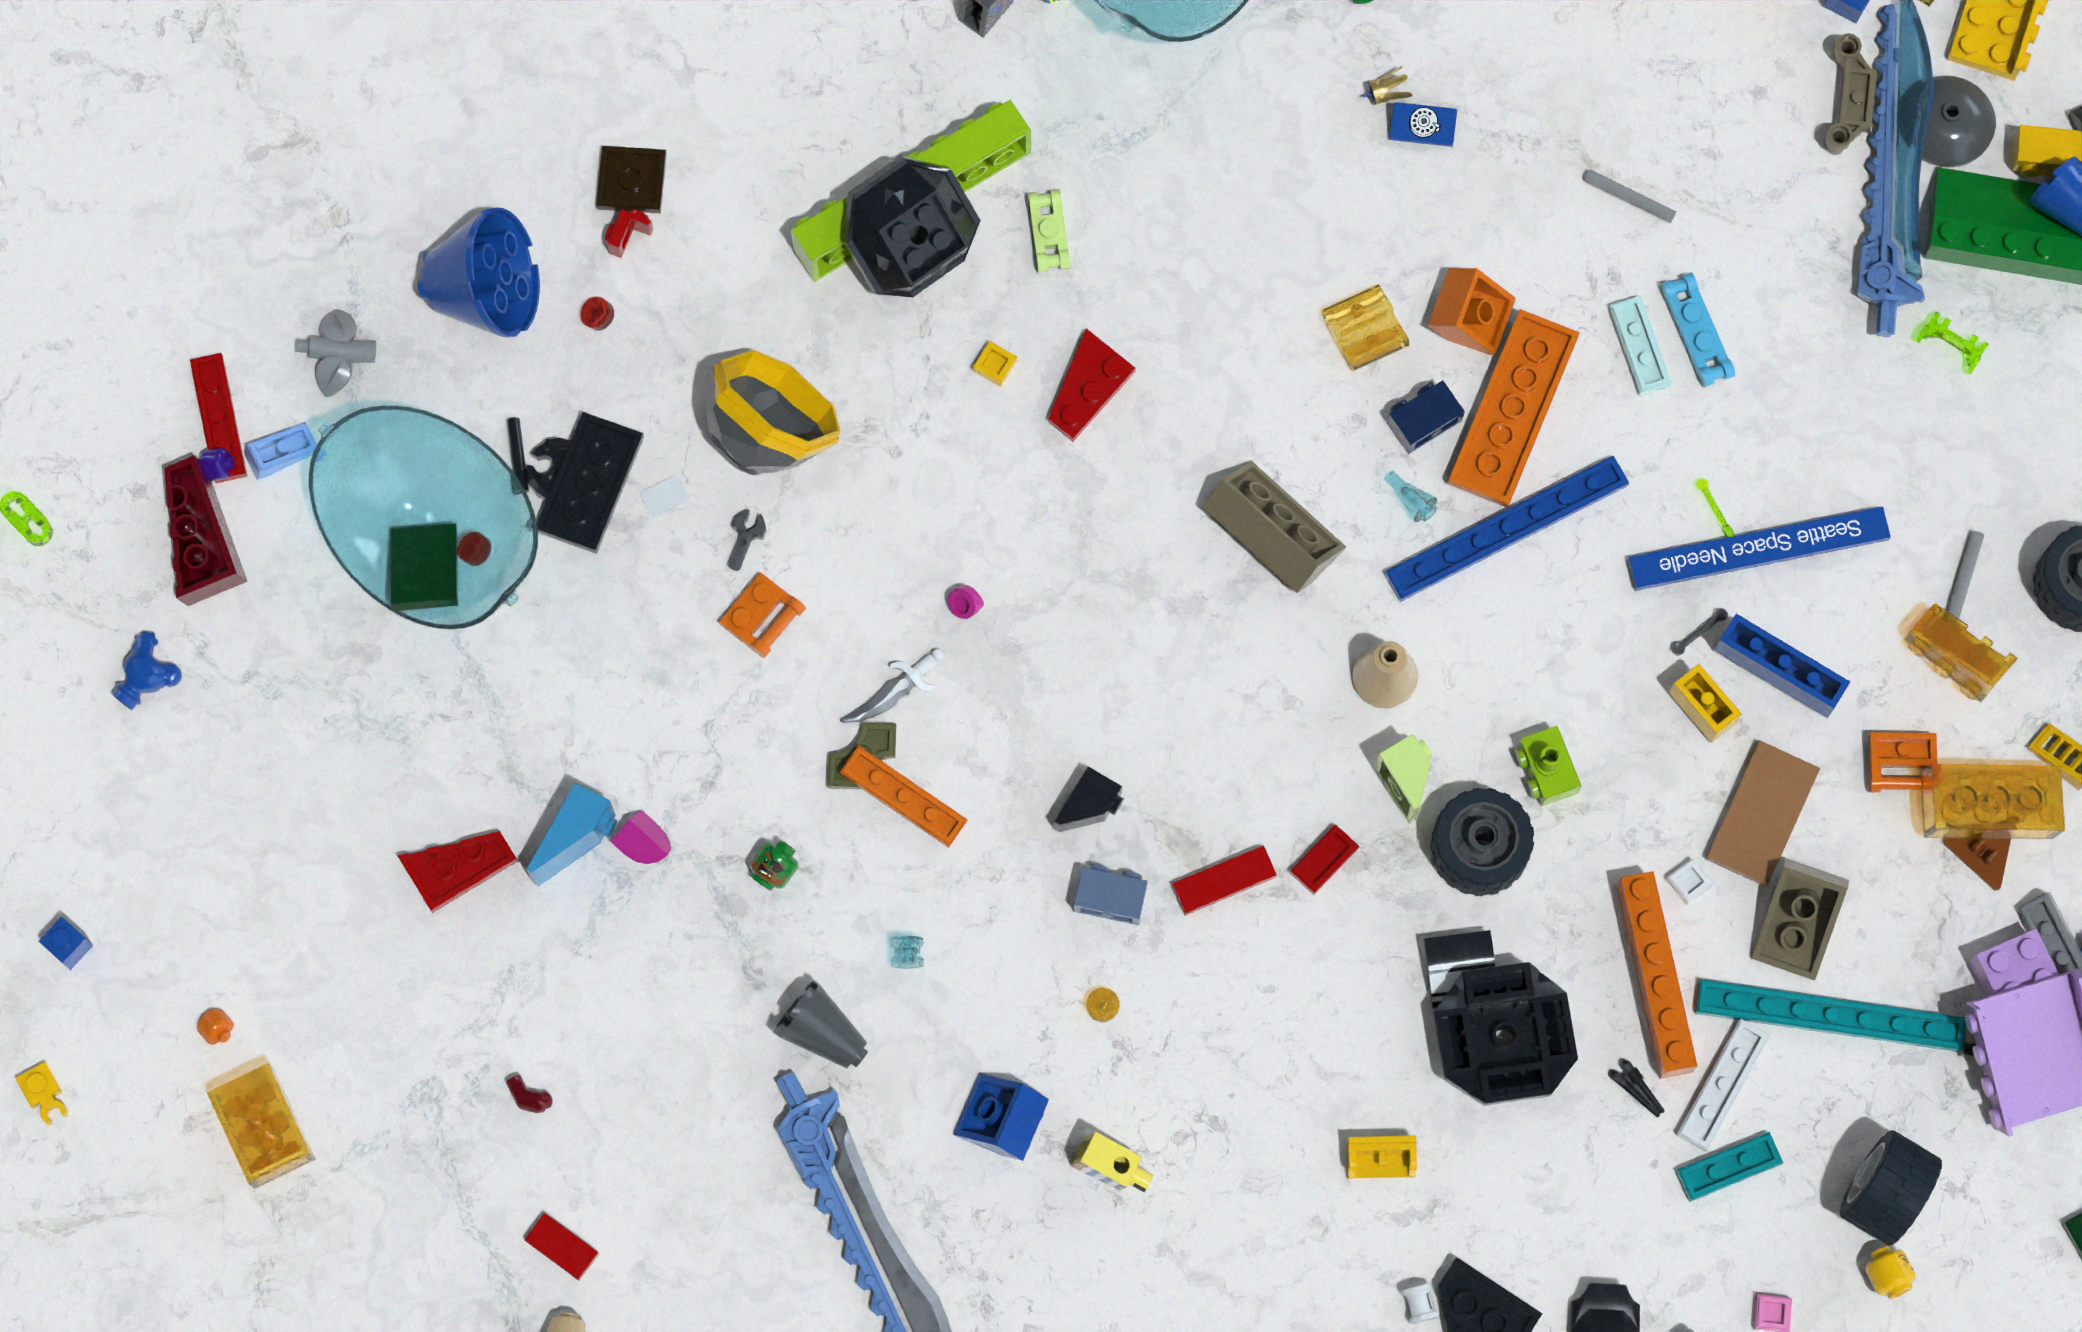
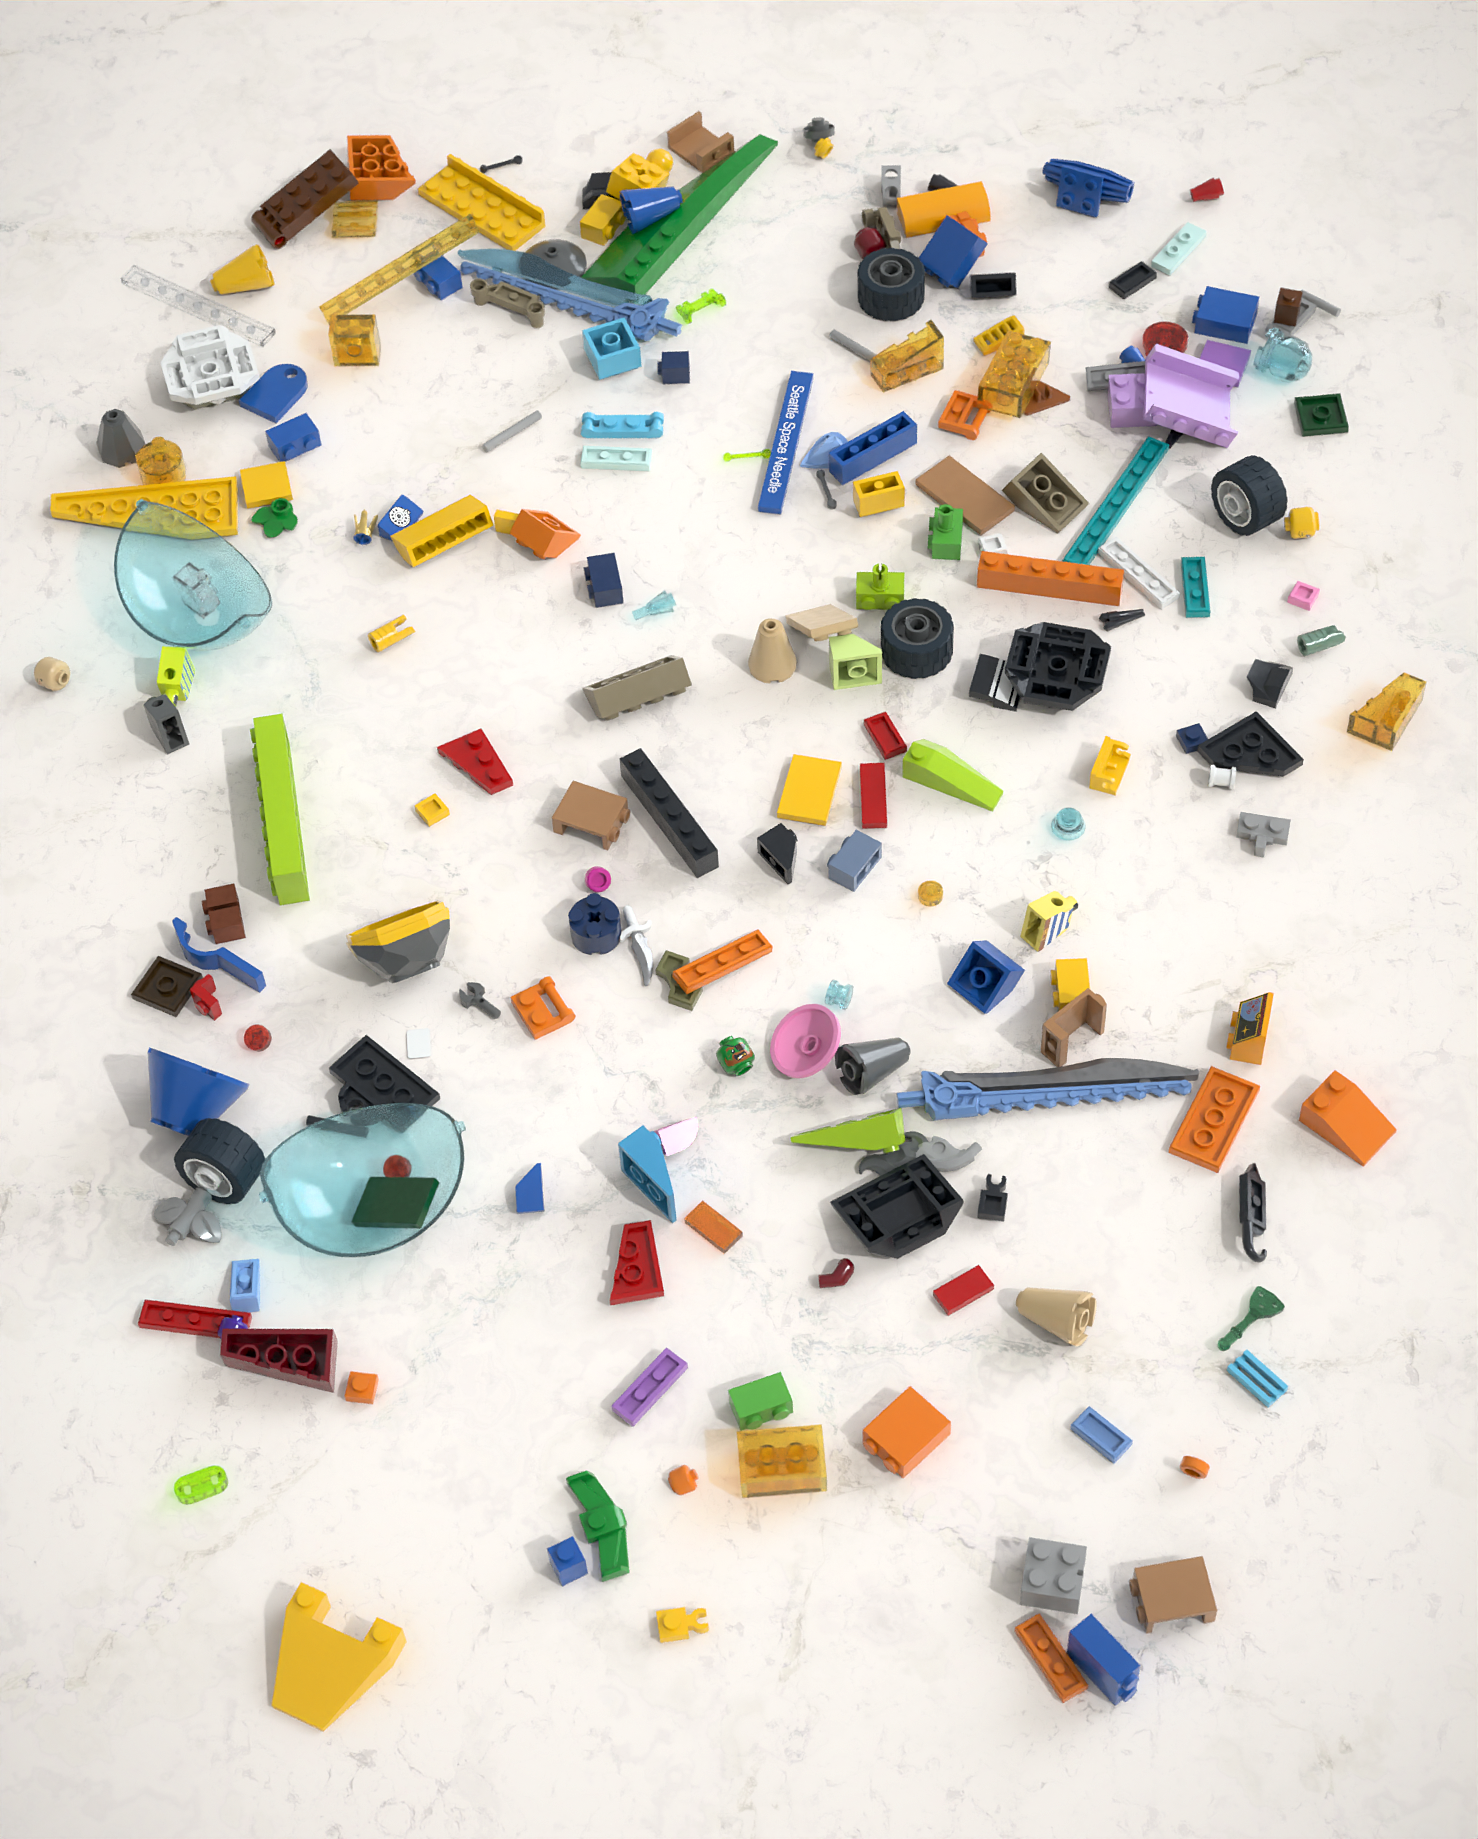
camera: 65 degrees left, 20 degrees down
(129, 962) = (602, 1523): none -> green plate
(144, 672) = (374, 1435): blue animal -> none
(200, 633) = (361, 1387): none -> orange plate
(309, 944) = (649, 1387): none -> medium lavender plate
(331, 1073) = (760, 1401): none -> bright green brick
(350, 1249) = (906, 1432): none -> orange brick
(401, 352) = (220, 1160): none -> black wheel
(507, 708) = (530, 1192): none -> blue slope
(541, 931) = (713, 1227): none -> clear orange tile
(630, 1132) = (900, 1208): none -> black slope
(686, 1239) = (993, 1200): none -> black plate
(699, 164) = (219, 959): none -> blue piece
(714, 1121) = (938, 1151): none -> piece
(719, 1056) = (873, 1132): none -> lime wedge
(759, 184) = (224, 914): none -> copper piece
(817, 938) = (805, 1041): none -> bright pink dish
(885, 610) = (595, 924): none -> dark blue brick
(887, 210) = (310, 807): black piece -> none
(931, 1224) = (1085, 1008): none -> medium nougat panel
(1023, 1225) = (1070, 979): none -> yellow brick
(1049, 230) = (353, 748): yellowish green plate -> none
(1054, 554) = (591, 812): none -> medium nougat panel
(1092, 644) = (669, 813): none -> black brick
(1202, 799) = (809, 789): none -> yellow tile
(1230, 192) = (388, 635): none -> yellow hinge
(1282, 1141) = (1068, 824): none -> clear light blue cone
(1298, 951) = (947, 773): none -> lime wedge
(1365, 327) = (523, 596): clear yellow slope -> none
(1423, 183) = (442, 530): none -> yellow brick
(1447, 713) = (822, 621): none -> tan tile
(1469, 252) = (504, 521): none -> yellow tile
(1473, 1245) = (1191, 737): none -> dark blue plate
(1506, 528) = (704, 566): blue tile -> none
(1513, 408) = (624, 533): orange plate -> none
(1680, 814) = (947, 533): none -> bright green brick
(1763, 606) = (819, 454): none -> light blue piece
(1814, 261) = (612, 348): none -> medium azure brick
(1821, 355) = (674, 367): none -> dark blue brick

